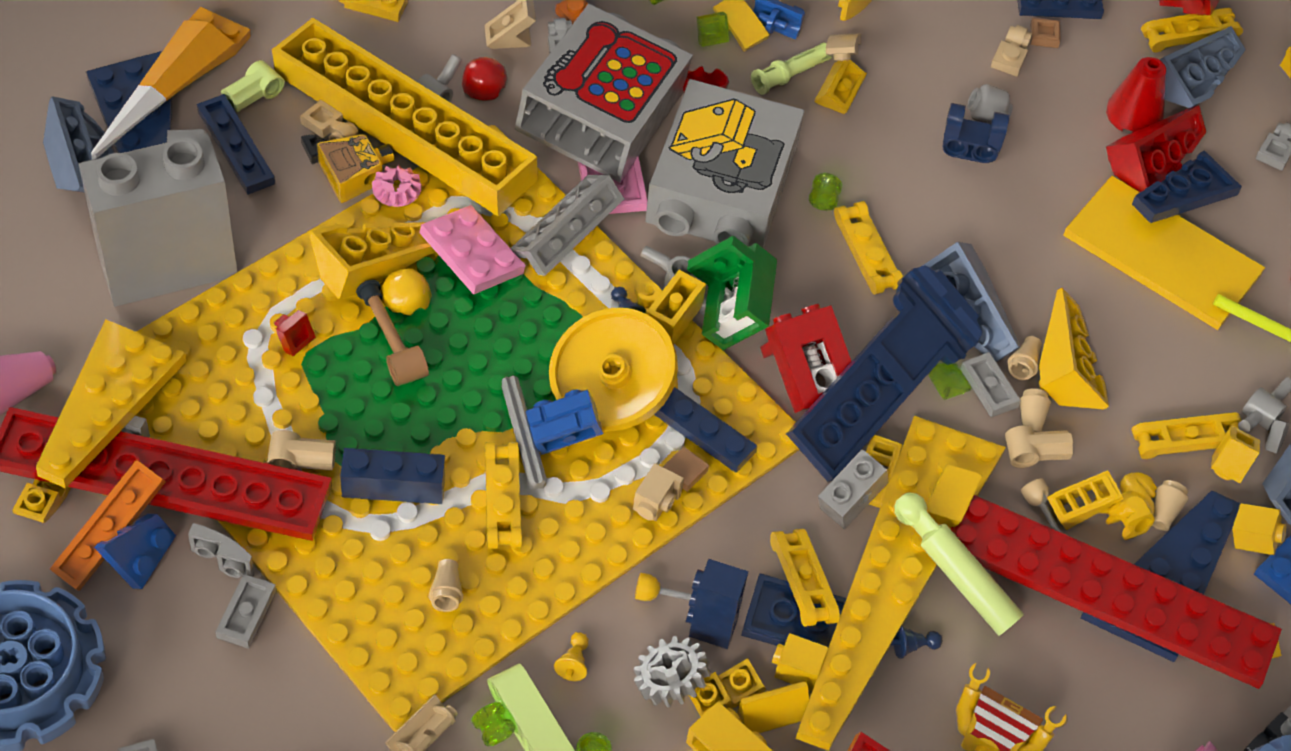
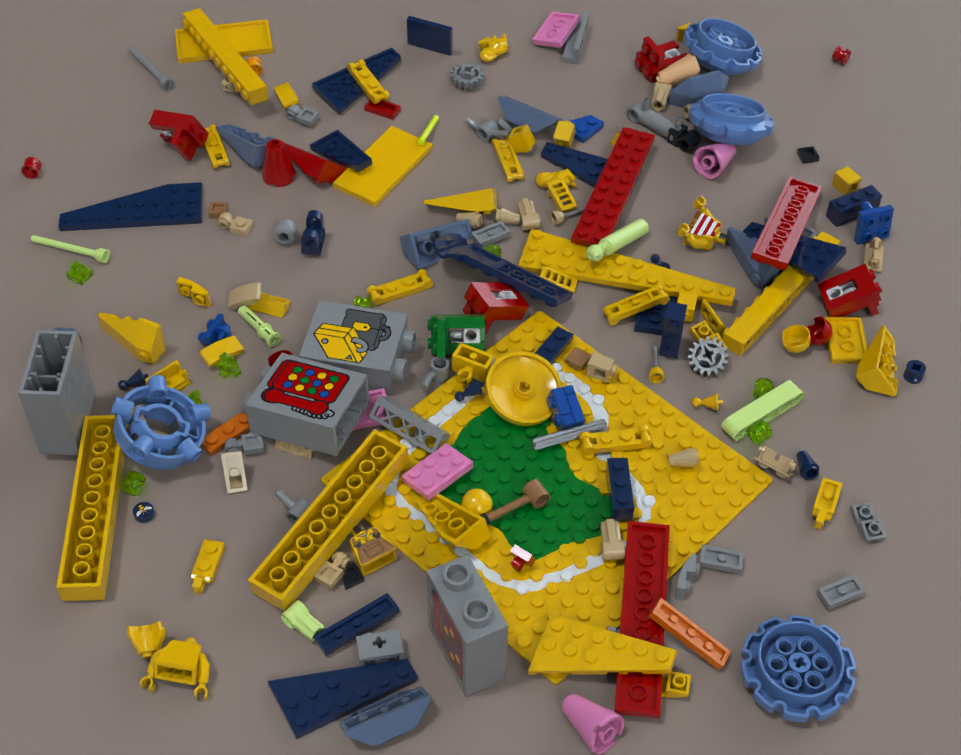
camera: 90 degrees left, 5 degrees down
(138, 549) = (706, 617): blue wing -> none
(192, 52) = (272, 662): light orange plate -> none
(407, 191) = (395, 524): bright pink gear -> none
(484, 78) = (280, 480): red hair -> none
(853, 489) = (578, 283): light grey brick -> none
(952, 495) = (574, 241): yellow slope -> none
(1168, 503) = (551, 165): tan cone -> none

